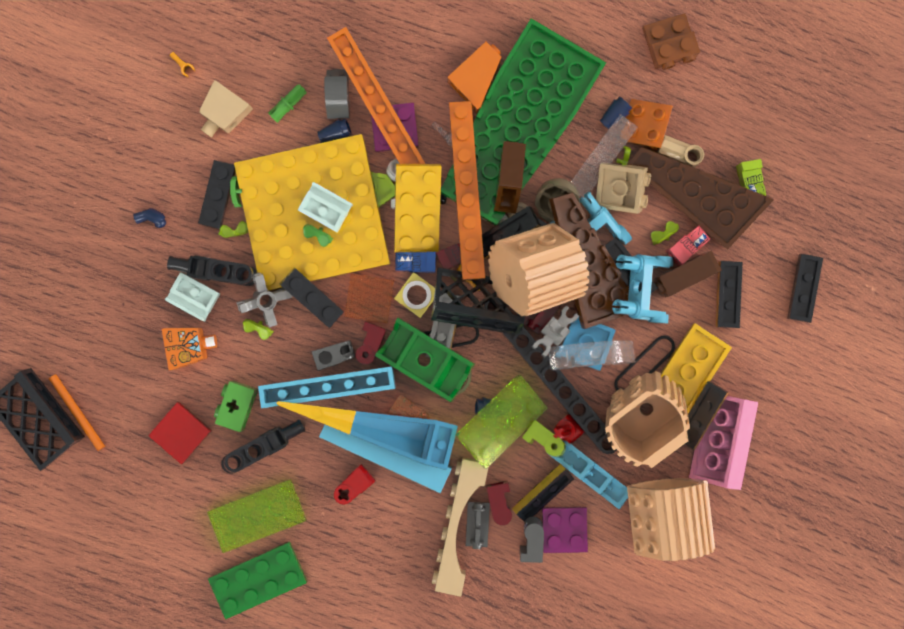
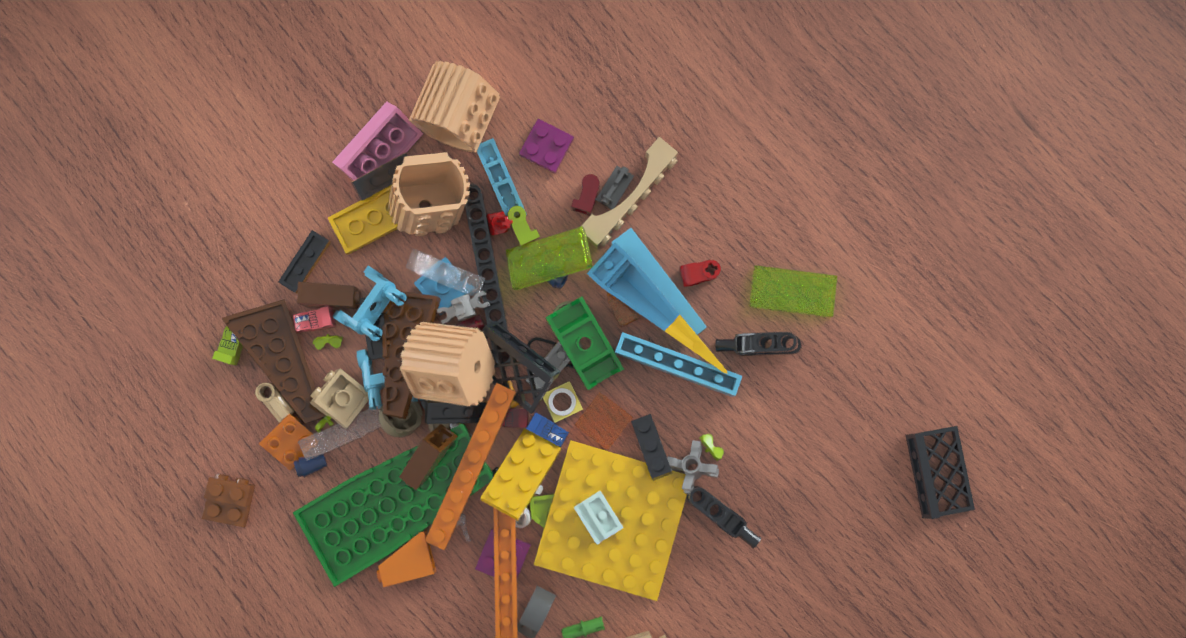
camera: 155 degrees left, 5 degrees down
(77, 413) = (901, 457): orange bar -> none
(150, 215) = (751, 594): dark blue arm -> none
(179, 433) = (822, 394): red tile -> none
(186, 346) = (779, 464): orange torso -> none
(192, 296) = (752, 503): light aqua plate -> none
(217, 195) = (685, 581): black plate -> none
(227, 232) = (680, 540): lime piece -> none
(235, 191) = (672, 567): bright green piece -> none
(245, 399) = (768, 379): bright green brick -> none
(257, 580) = (819, 239): green plate -> none
(323, 238) = (614, 491): bright green piece -> none
(333, 355) = (659, 389): dark grey leg -> none
(336, 130) = (555, 581): dark blue cone -> none
(371, 344) = (626, 377): dark red leg -> none
(534, 541) = (577, 146): dark grey leg -> none
(543, 493) = (547, 183): black plate -> none
(643, 353) = (402, 252): black piece -> none
(805, 288) = (240, 233): black plate -> none

